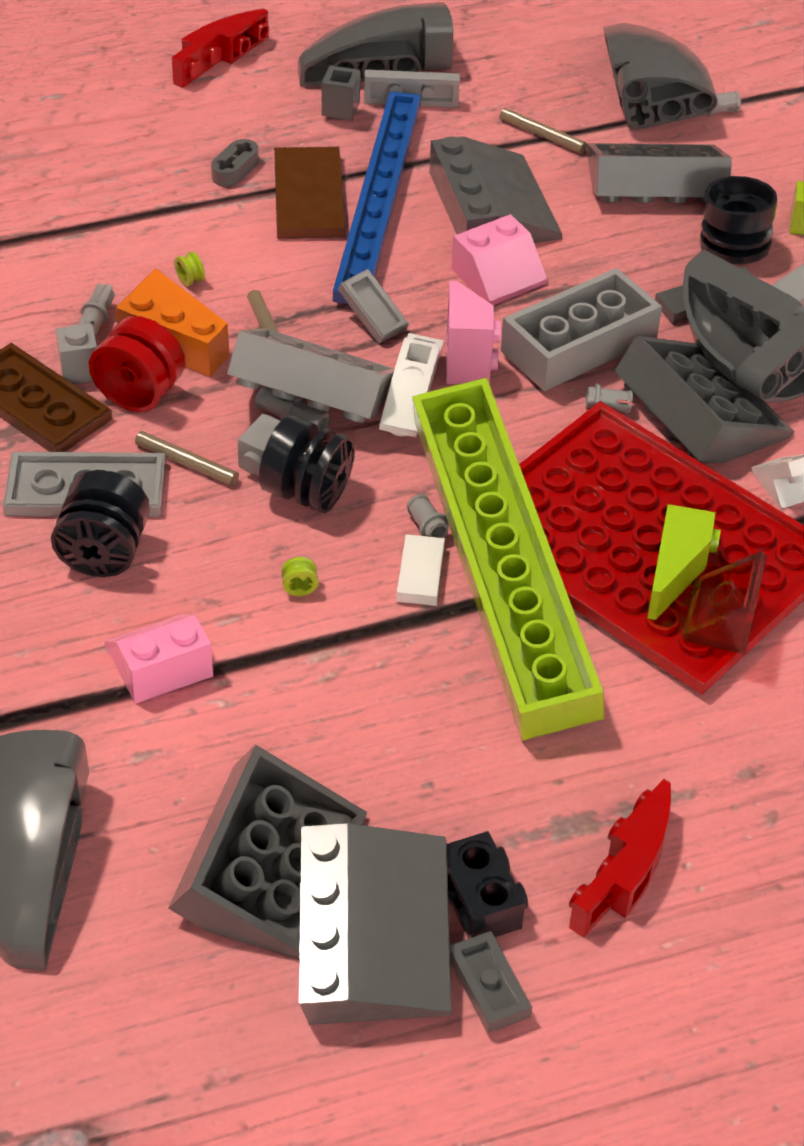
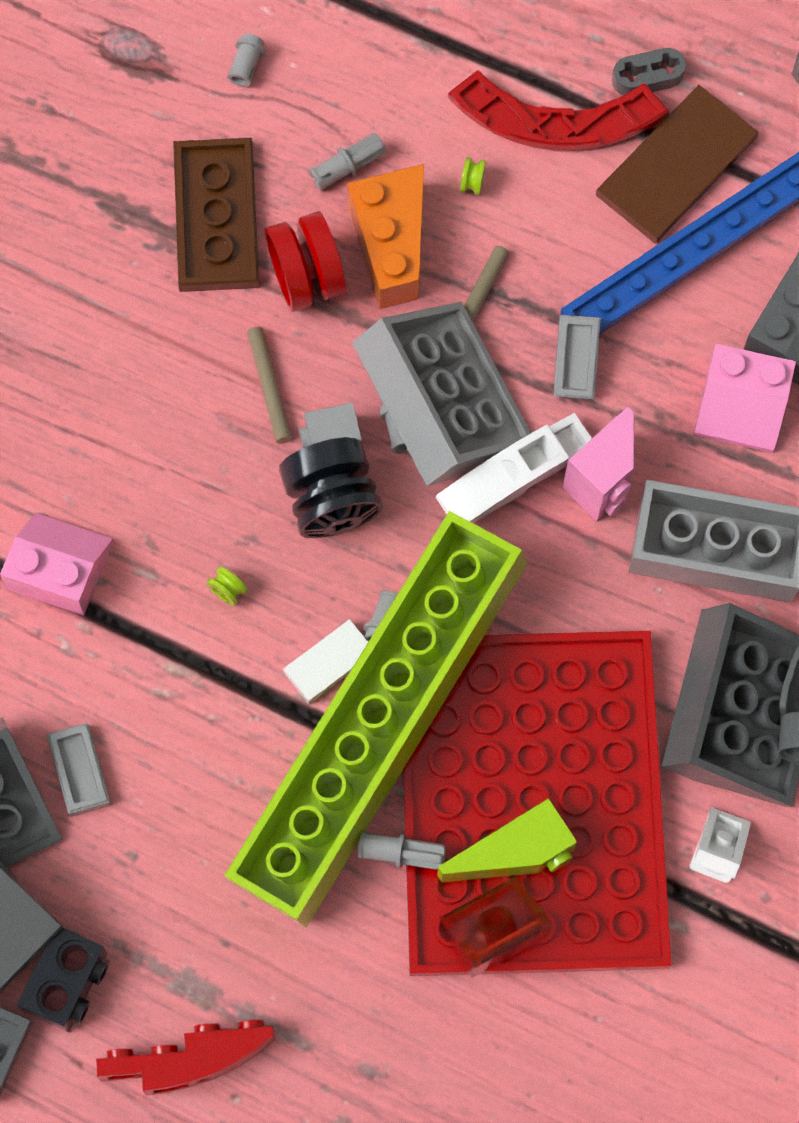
camera: 45 degrees right, 25 degrees up
(42, 479) = (169, 343): light grey tile -> none
(74, 350) = (283, 199): light grey brick -> none
(100, 523) = (114, 410): black wheel -> none
(206, 221) = (557, 127): none -> red tile
(327, 762) = (78, 769): none -> light grey tile
(608, 397) = (666, 632): light grey pin -> none
(613, 614) = (401, 850): none -> light grey axle

